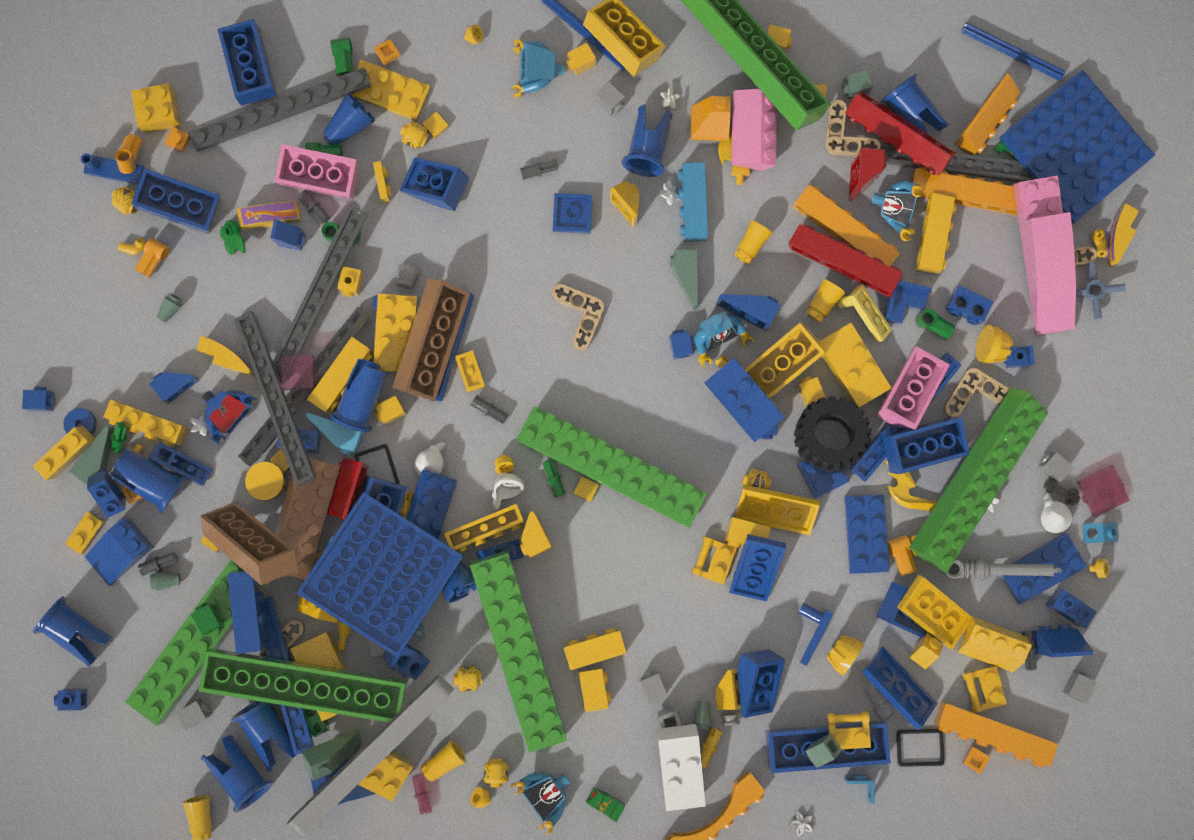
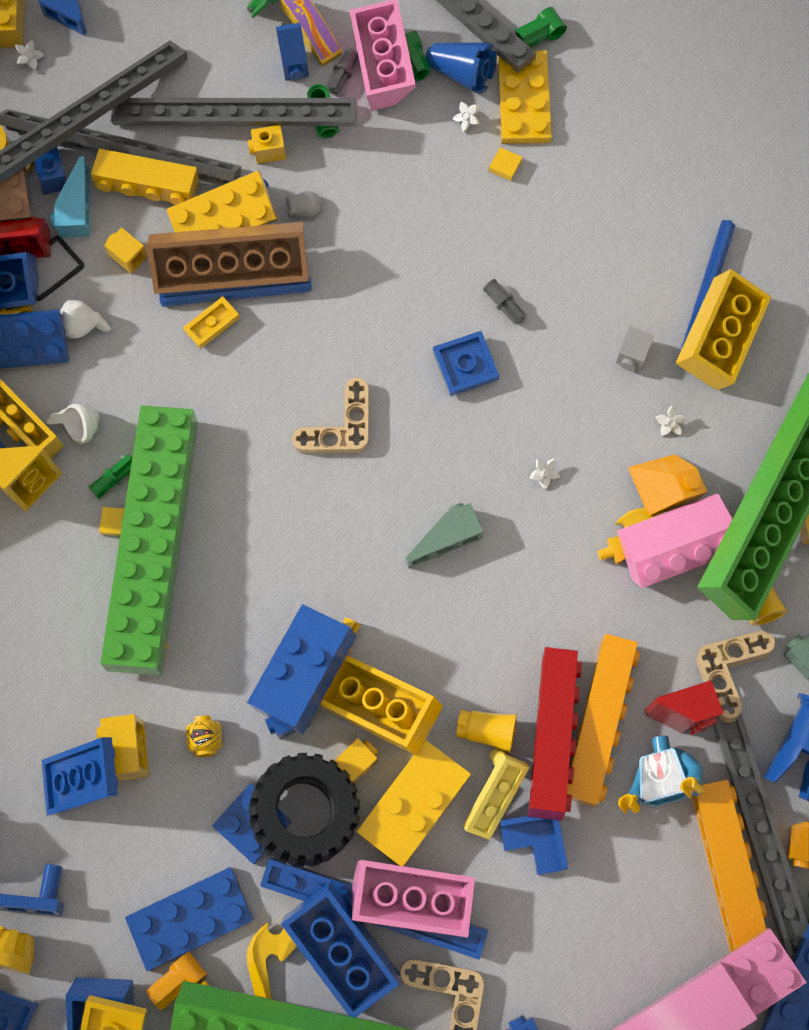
camera: 70 degrees right, 10 degrees down
(223, 356) = (121, 43): yellow slope -> none
(225, 411) = (51, 73): torso -> none
(298, 372) = (129, 127): clear pink piece -> none
(360, 396) = (121, 203): blue piece -> none
(381, 175) = (406, 130): yellow plate -> none
(387, 52) = (569, 74): light orange plate -> none
(387, 135) = (467, 115): none -> white plant
(414, 135) = (480, 143): yellow head -> none
(435, 183) = (431, 191): blue slope -> none
(474, 34) = (639, 161): yellow tile -> none
(489, 409) = (172, 364): dark grey axle -> none
(504, 464) = (107, 408): yellow tile -> none
(536, 66) = (632, 245): dark azure torso -> none
(580, 59) = (668, 294): yellow brick -> none
(626, 199) = (510, 420): yellow slope -> none
(647, 146) = (592, 415): blue piece -> none
(681, 344) = (350, 564): blue brick -> none
(694, 202) = (547, 505): dark azure brick -> none
(717, 331) = (386, 602): dark azure torso -> none
(719, 563) = (75, 732): yellow plate -> none
(751, 308) = (435, 637): blue slope -> none
(752, 242) = (526, 601): yellow plant -> none
(777, 509) = (174, 777): yellow plate -> none
(900, 133) = (764, 737): red brick -> none
(935, 234) = (649, 845): yellow brick -> none
(936, 325) = (522, 901): green piece -> none
(970, 300) = (576, 936): blue brick -> none
(993, 345) = (525, 994): yellow piece -> none

